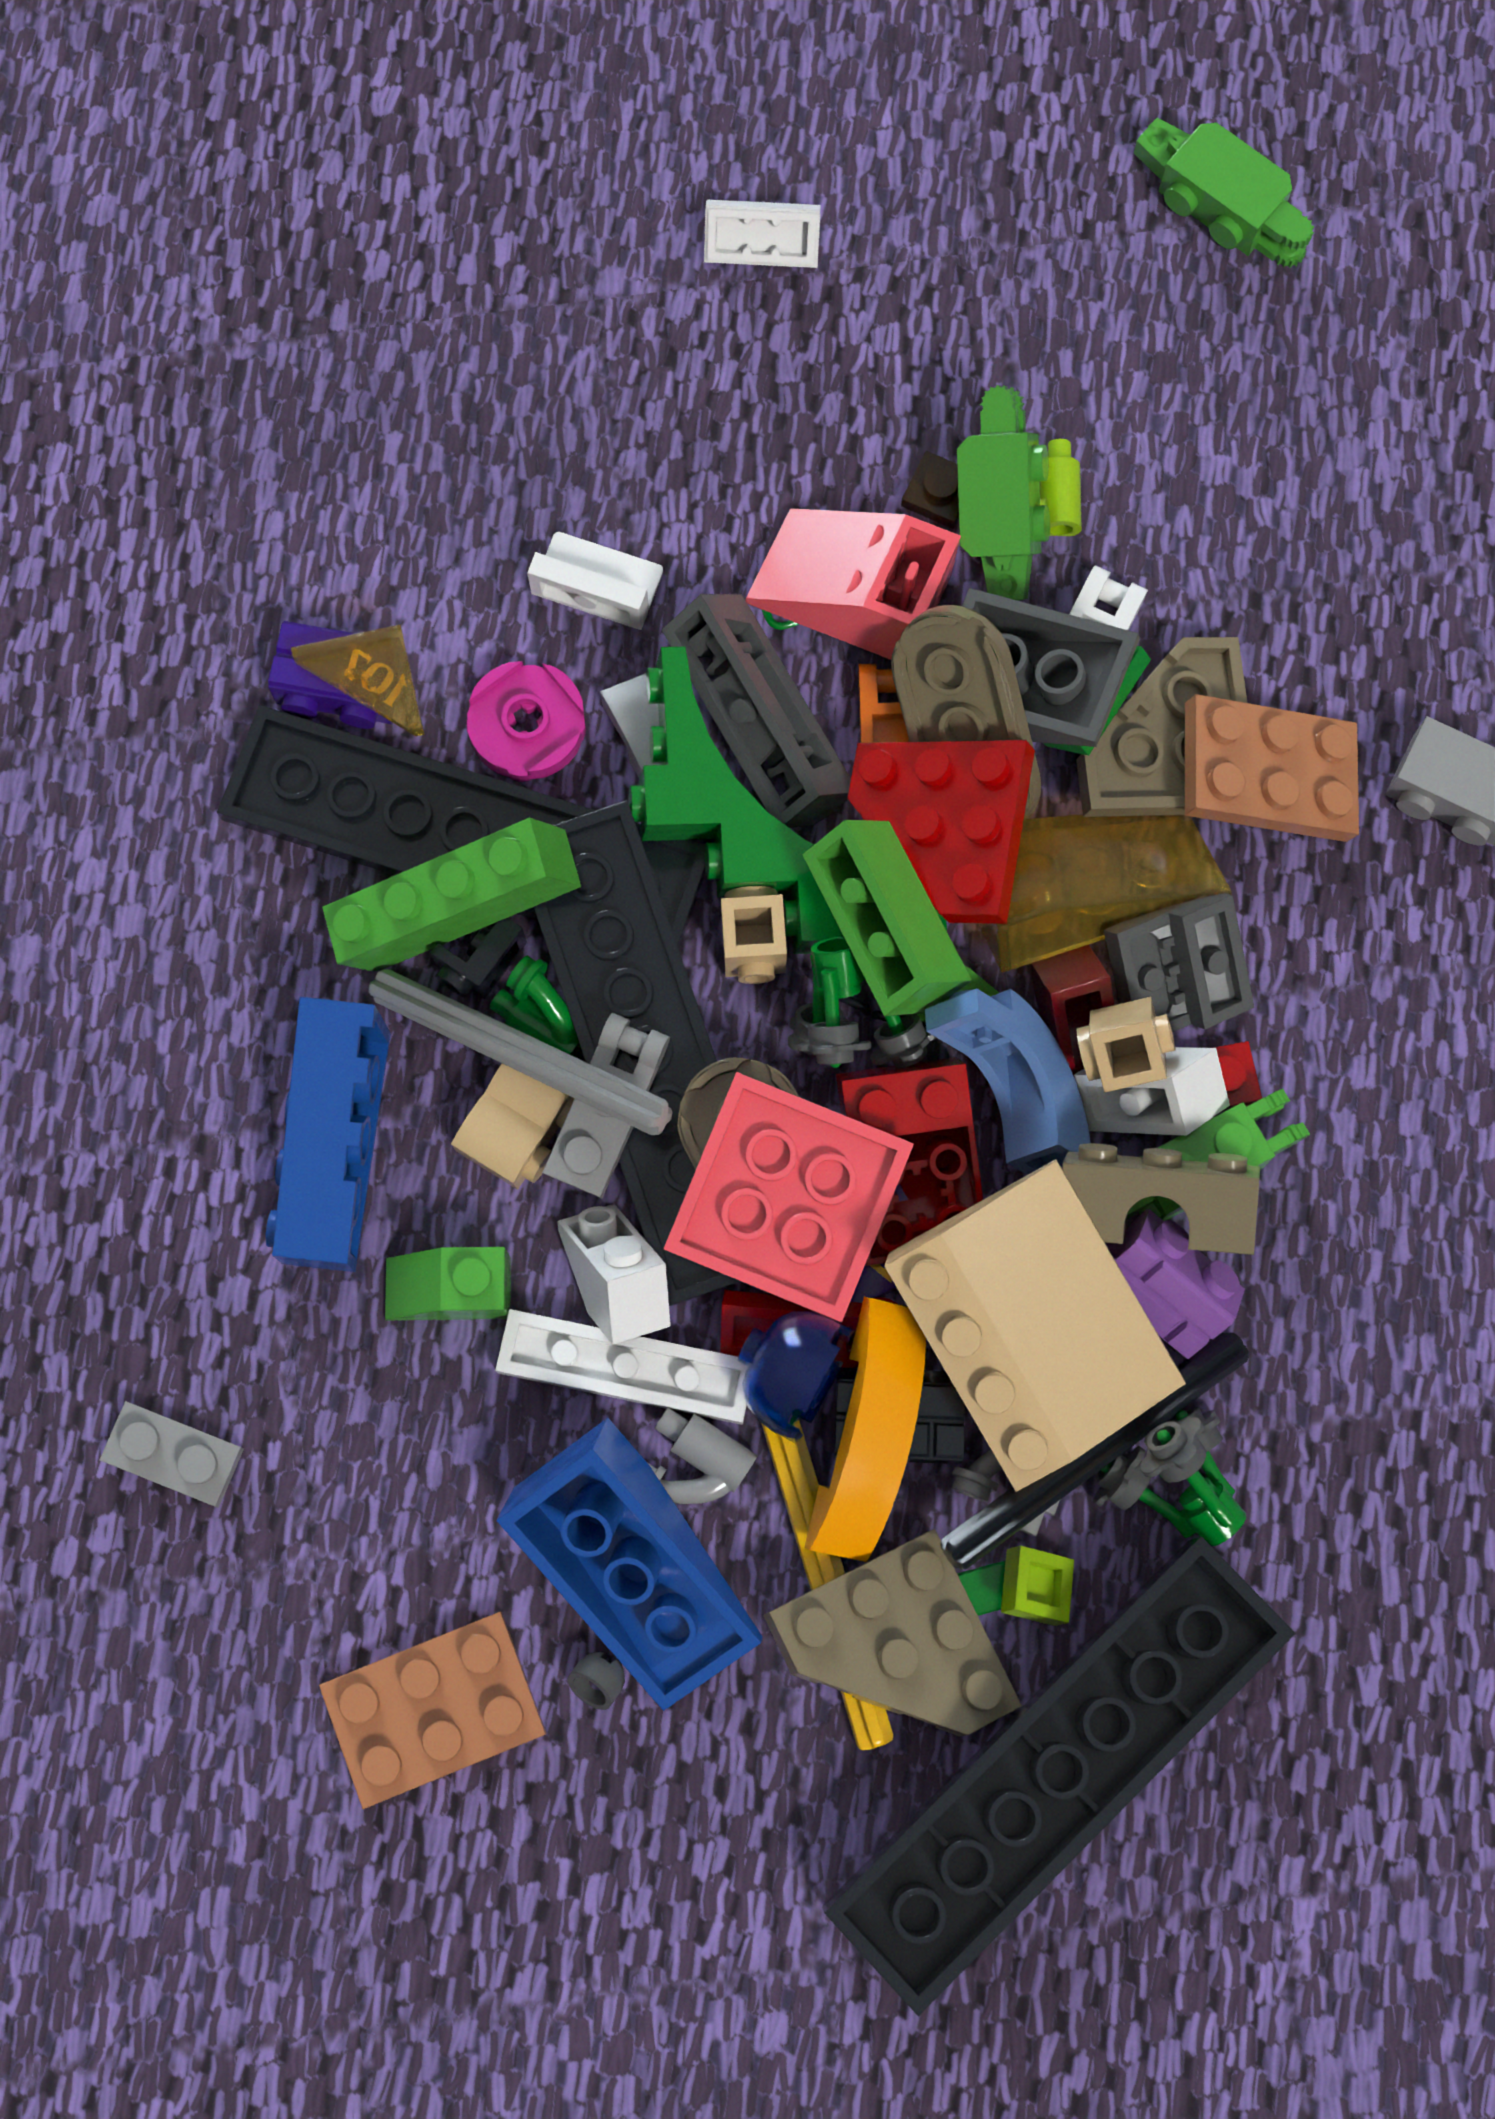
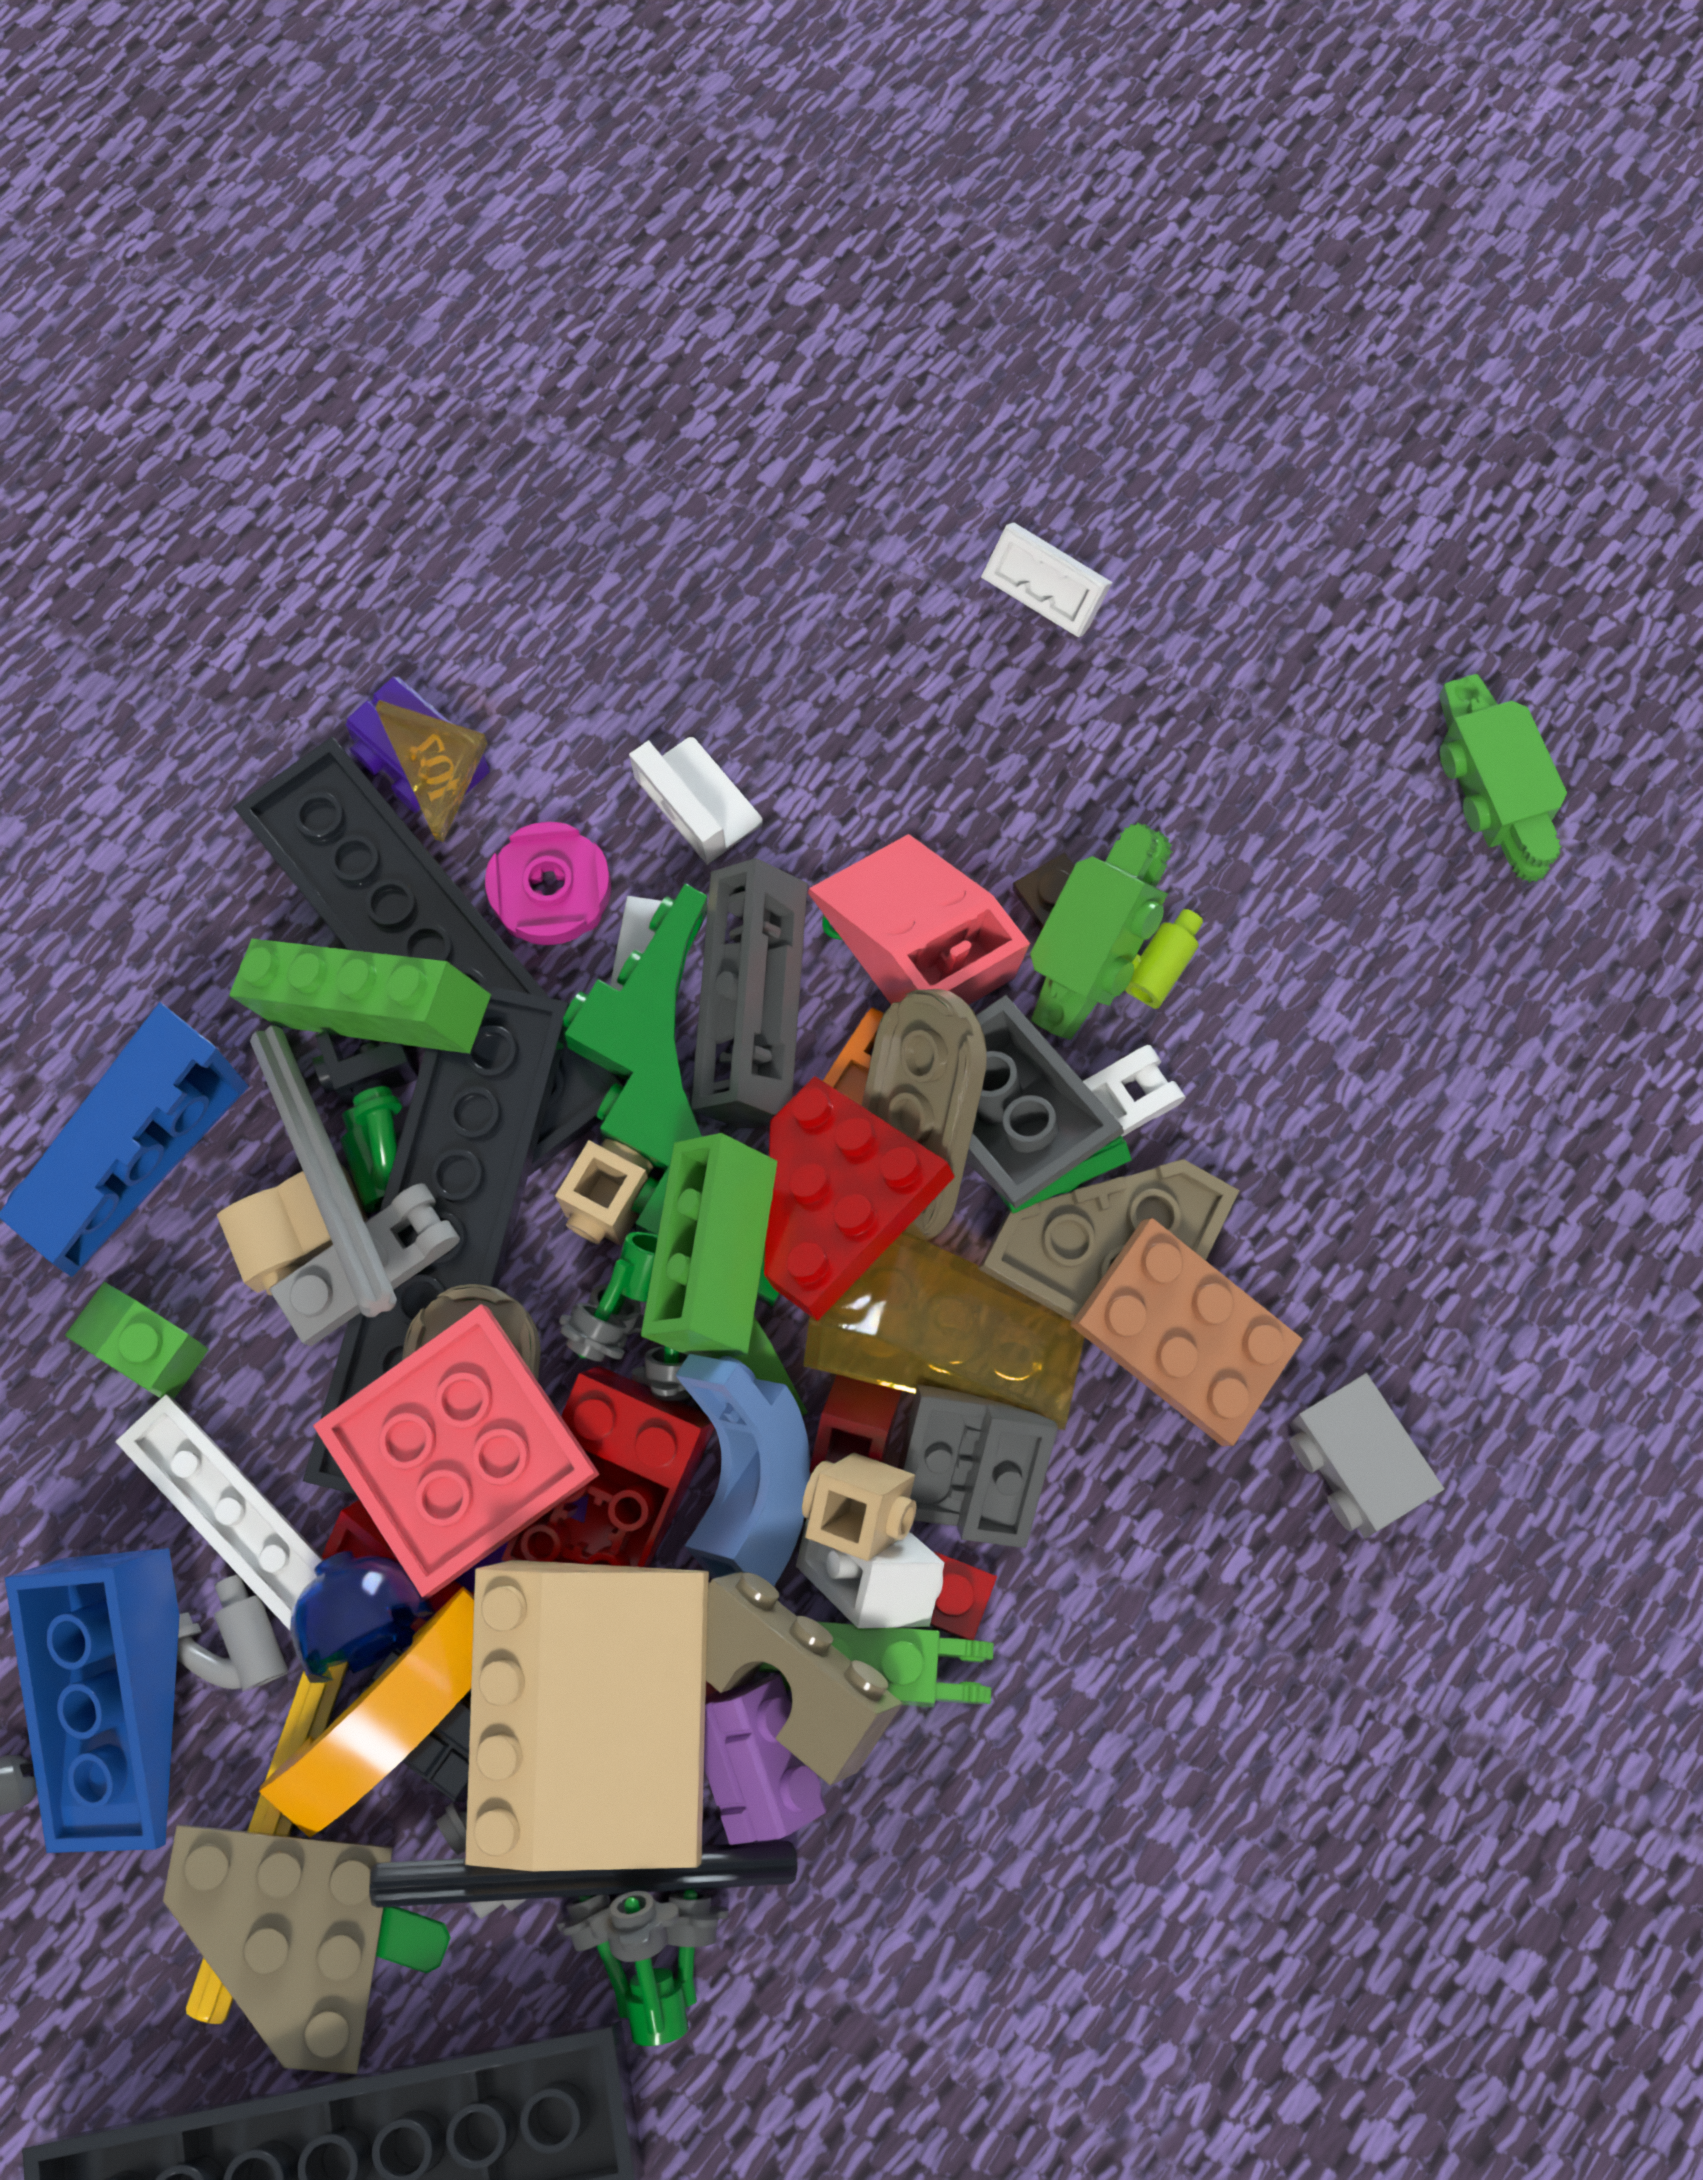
camera: 35 degrees right, 5 degrees down
(616, 1273) = (276, 1421): white slope -> none
(1037, 1586) = (447, 1968): lime plate -> none

